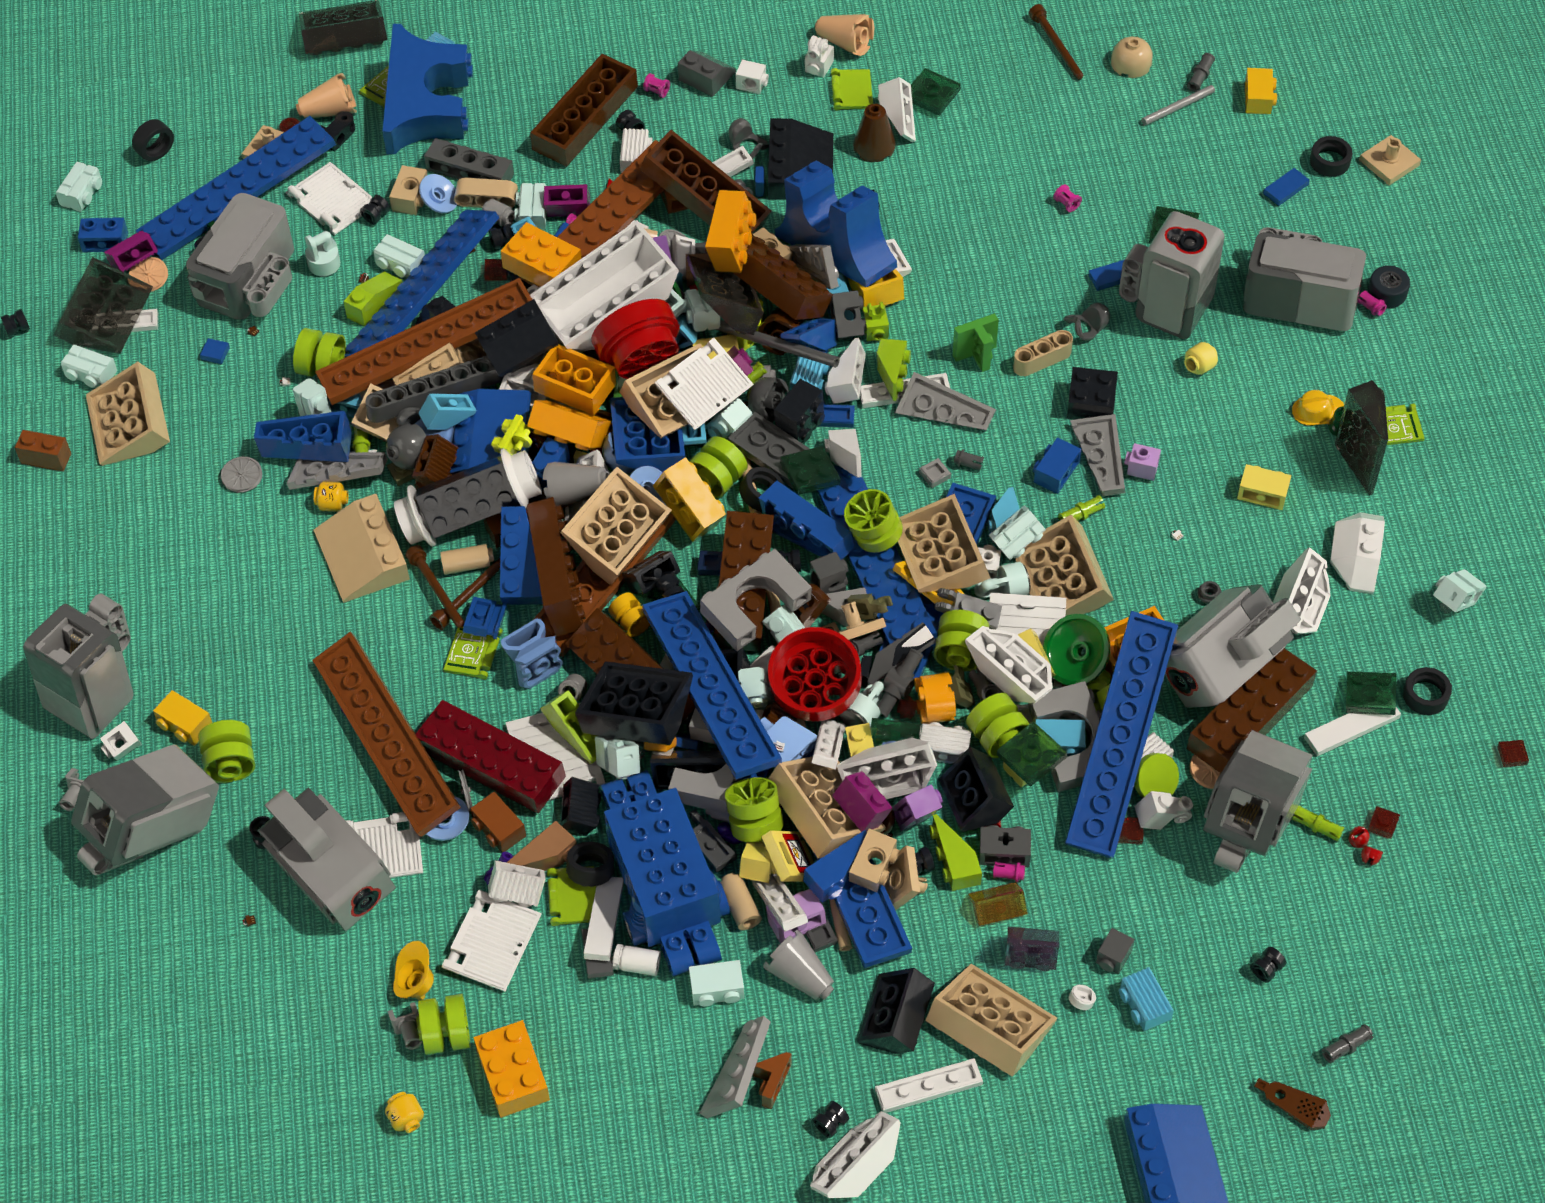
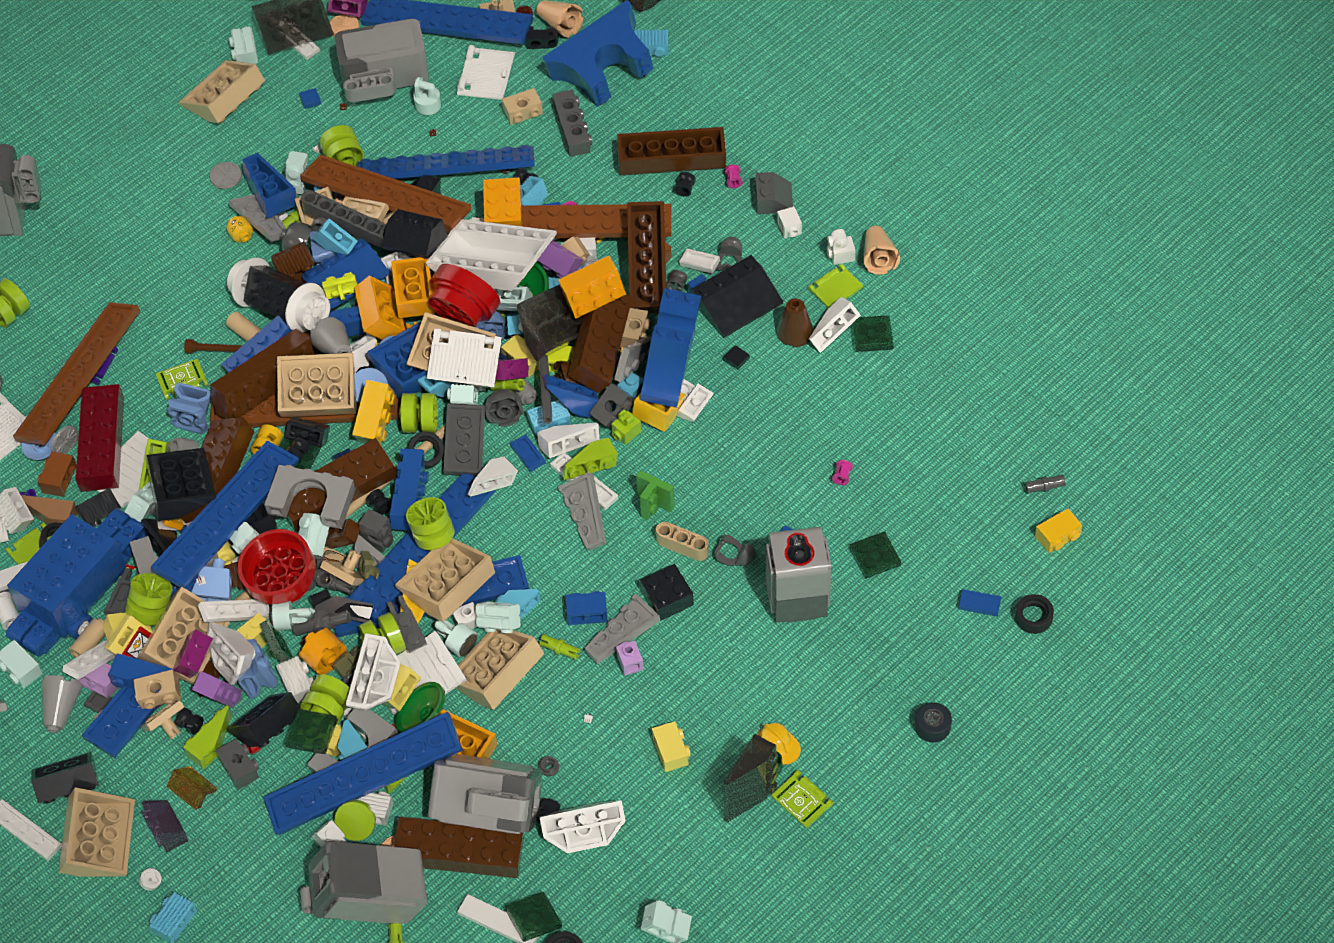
camera: 55 degrees right, 0 degrees up
(43, 450) = (162, 68): dark orange brick -> none
(181, 717) = (19, 266): yellow brick -> none
(361, 549) = (206, 276): tan slope -> none
(370, 297) = (412, 143): lime slope -> none
(375, 209) = (490, 100): black wheel -> none
(397, 256) = (461, 135): light aqua brick -> none
(417, 557) = (228, 304): reddish brown piece -> none
(438, 193) = (539, 119): light blue dish -> none
(475, 192) = (555, 147): tan beam -> none
(484, 618) = (205, 367): blue plate -> none
(505, 212) = (543, 164): light grey brick -> none
(531, 204) = (565, 178): light aqua brick -> none
(566, 199) = (581, 190): magenta brick -> none
(633, 144) = (668, 194): white brick -> none
(800, 411) = (502, 430): black brick -> none
(810, 470) = (459, 466): clear green plate -> none
(935, 473) = (525, 541): light grey tile -> none
(966, 459) = (548, 549): dark grey pin -> none
(1009, 871) = (222, 782): dark pink pin -> none
(1038, 15) = (1009, 351): reddish brown piece -> none
(1115, 951) = (197, 877): dark grey brick -> none
(1131, 832) = (305, 832): clear red tile -> none
(1132, 57) = (1020, 433): tan cylinder -> none
(1178, 105) = (1001, 489): light grey bar -> none
(1201, 358) = (758, 640): light yellow head -> none
(1303, 280) = (878, 657): light grey piece -> none
(1358, 550) = (663, 838): white wedge -> none
(1376, 306) = (908, 724): dark pink pin -> none
(1390, 160) = (1069, 655): tan tile -> none

